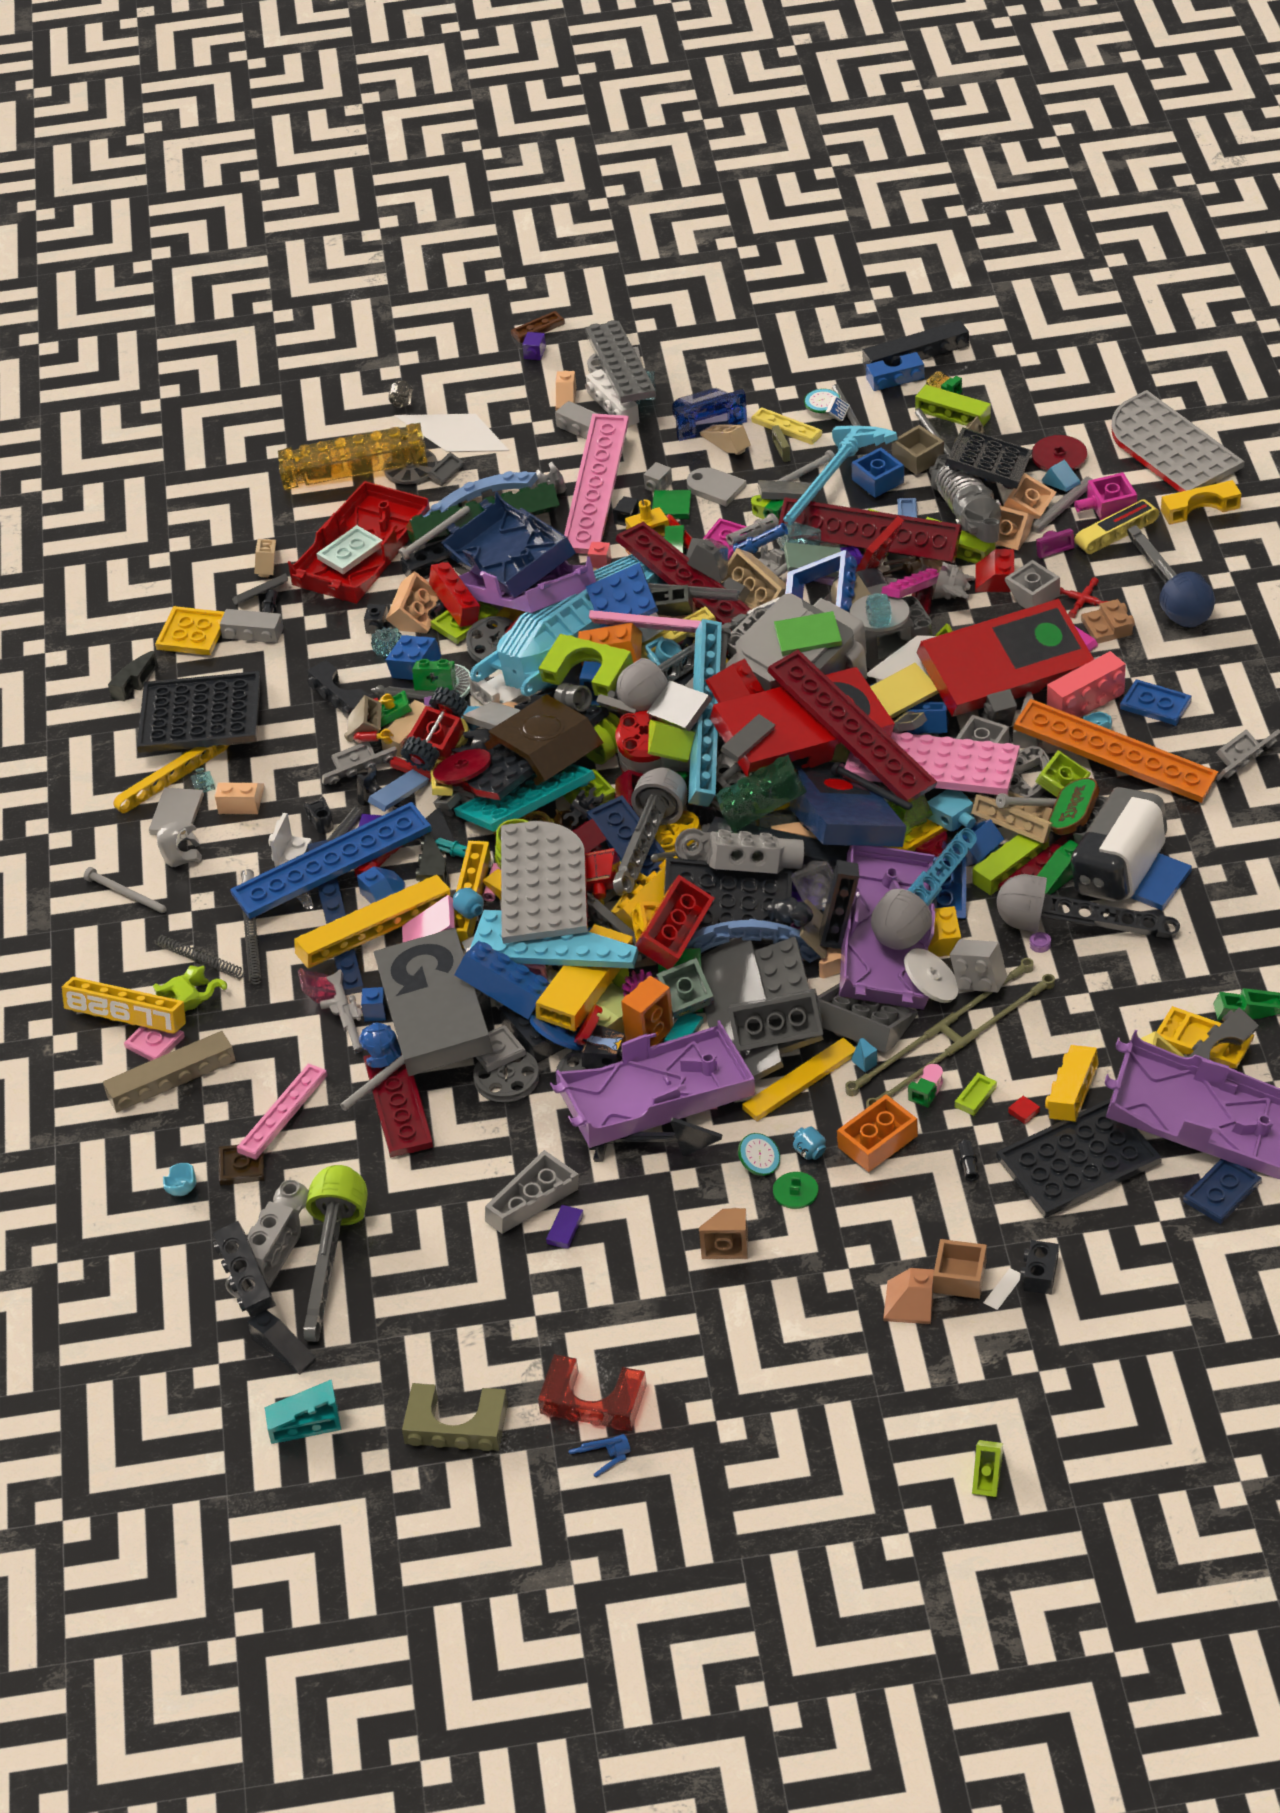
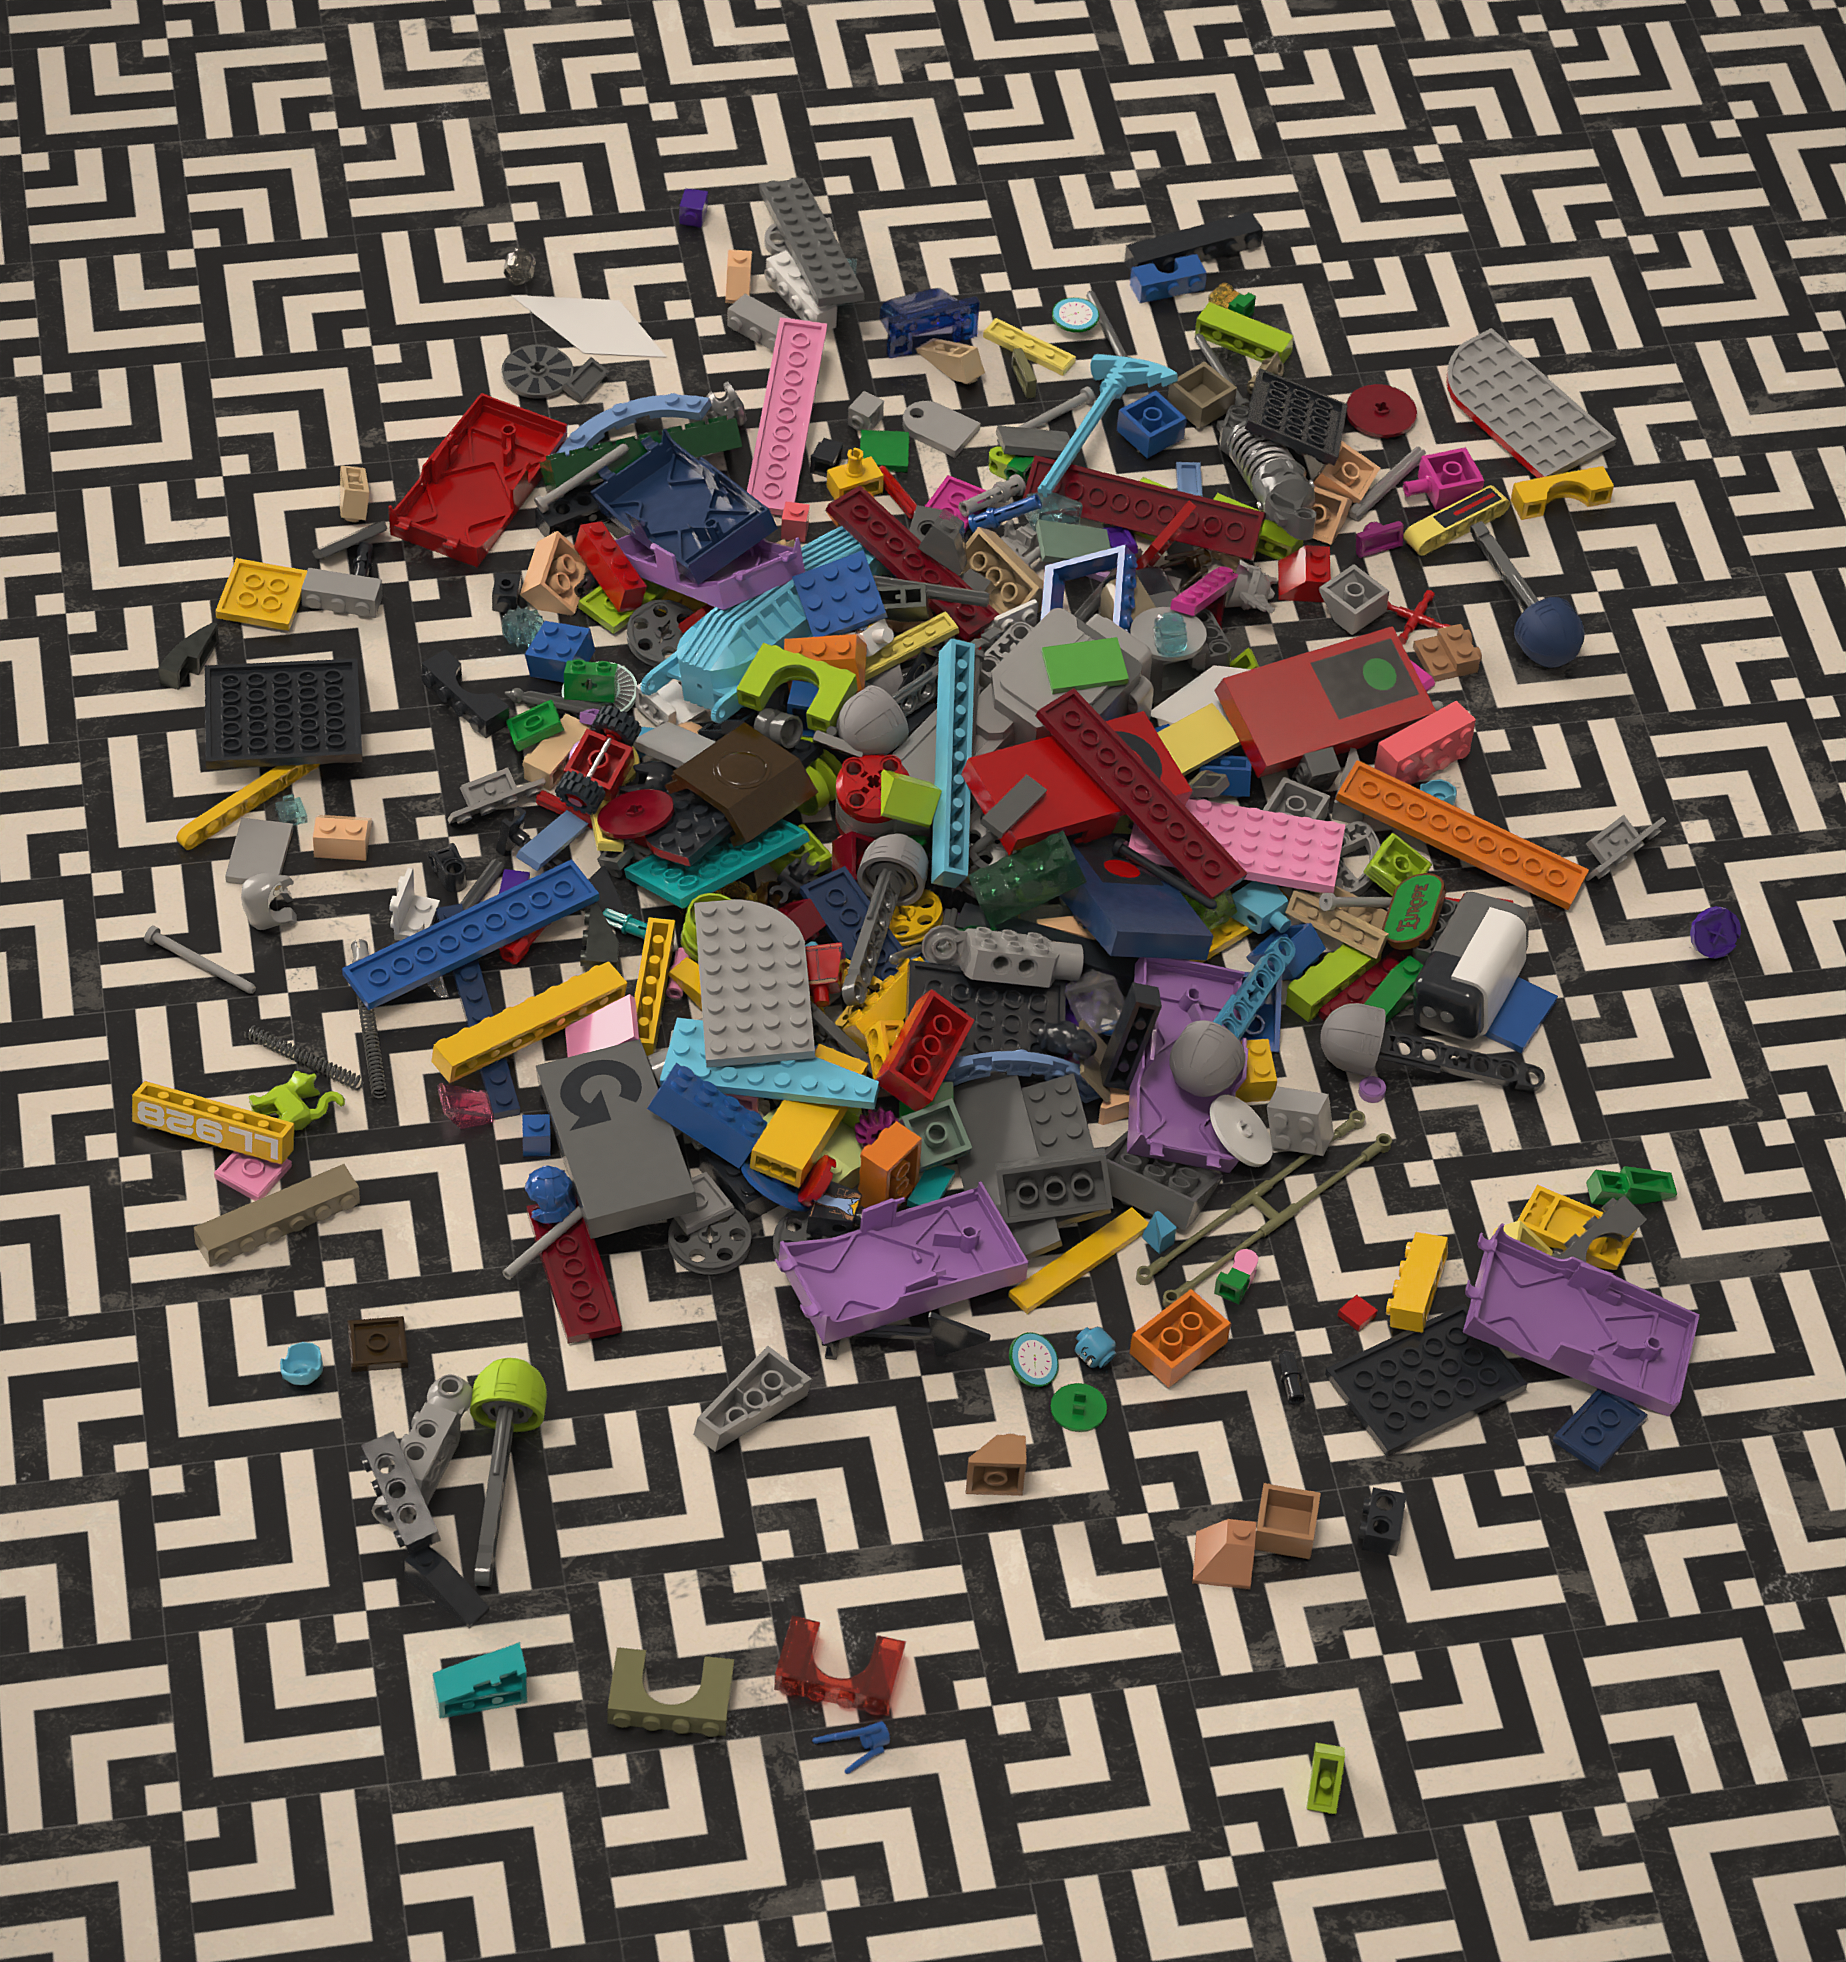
camera: 10 degrees left, 5 degrees up
(282, 1111) = (426, 1276): bright pink tile -> none
(340, 1006) = (502, 1144): light grey piece -> none
(349, 549) = (467, 491): light aqua plate -> none
(352, 456) = (462, 354): clear yellow brick -> none
(365, 720) = (505, 741): dark tan torso -> none
(379, 883) = (534, 971): blue slope -> none
(468, 903) = (655, 1006): dark azure head -> none
(539, 325) = (696, 178): reddish brown tile -> none
(564, 1226) = (793, 1445): dark purple tile -> none
(643, 621) = (873, 633): bright pink tile -> none
(664, 650) = (896, 674): medium azure piece -> none
(675, 536) = (892, 499): green slope -> none
(679, 705) = (921, 754): tile -> none
(734, 682) = (992, 728): red slope -> none
(837, 408) = (1096, 328): tile -> none
(935, 845) = (1237, 954): dark red tile -> none
(975, 1094) = (1297, 1289): lime tile -> none
(1003, 1289) = (1337, 1546): white sticker -> none
(1061, 477) = (1386, 446): dark azure slope -> none
(1155, 702) = (1509, 768): blue tile -> none

